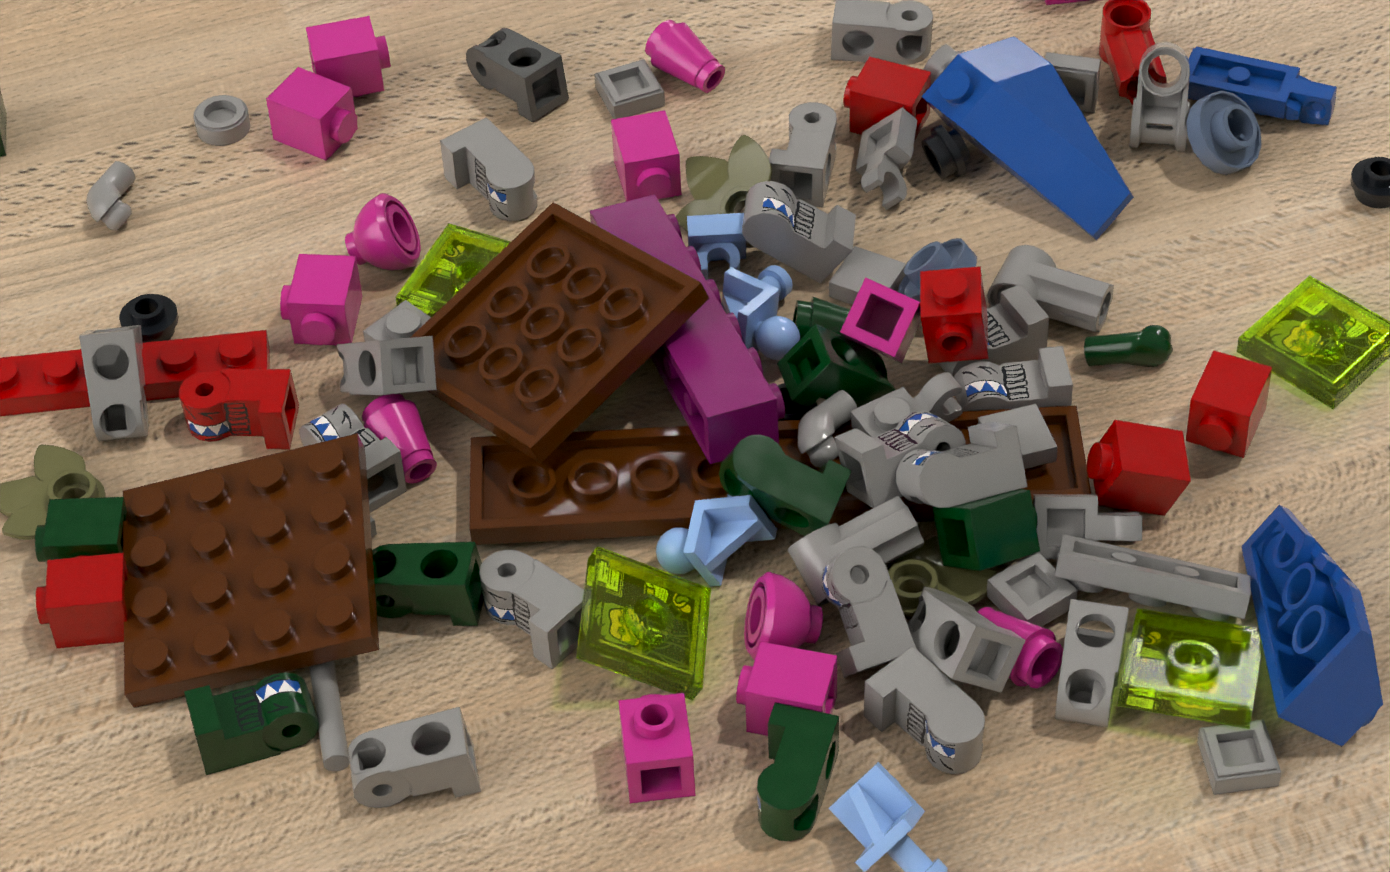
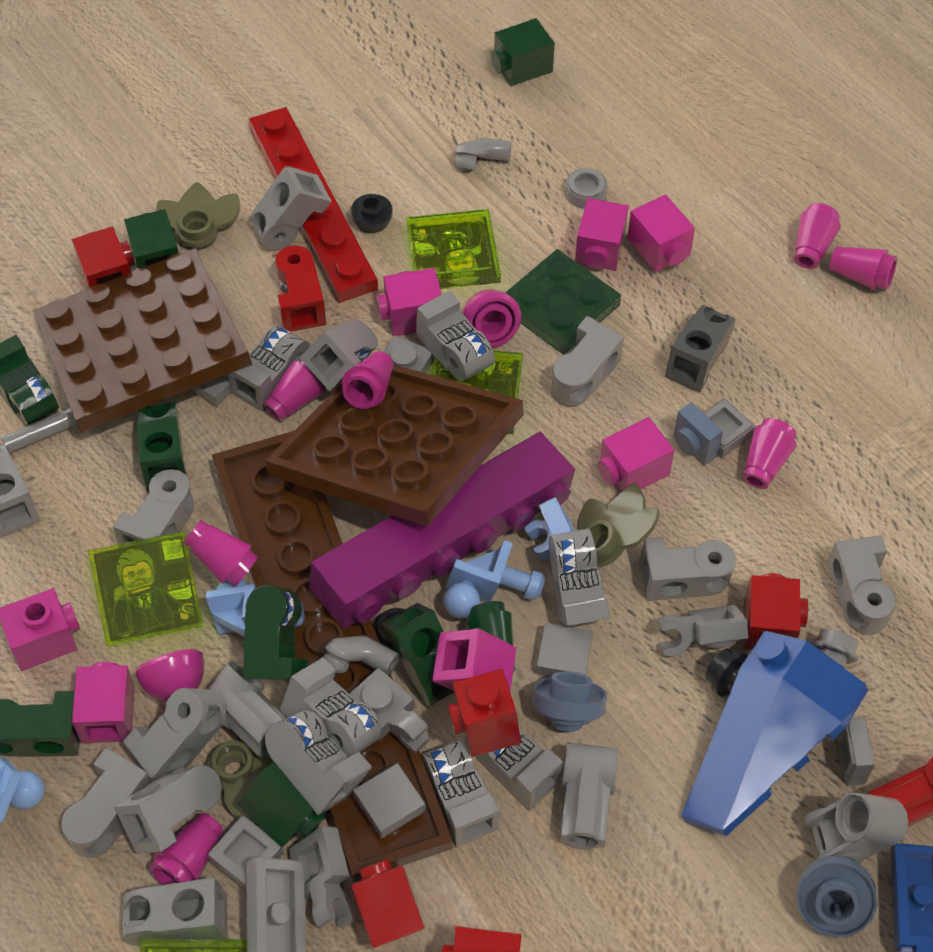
camera: 70 degrees right, 10 degrees up
(246, 257) = (457, 246): none -> clear neon green tile
(388, 163) = (559, 297): none -> clear green plate
(415, 262) = (453, 337): none -> light grey leg
(458, 330) = (368, 381): none -> dark pink cone
(637, 94) = (697, 434): none -> sand blue plate
(643, 520) = (221, 553): none -> dark pink cone
(1140, 348) = (541, 873): dark green arm -> none

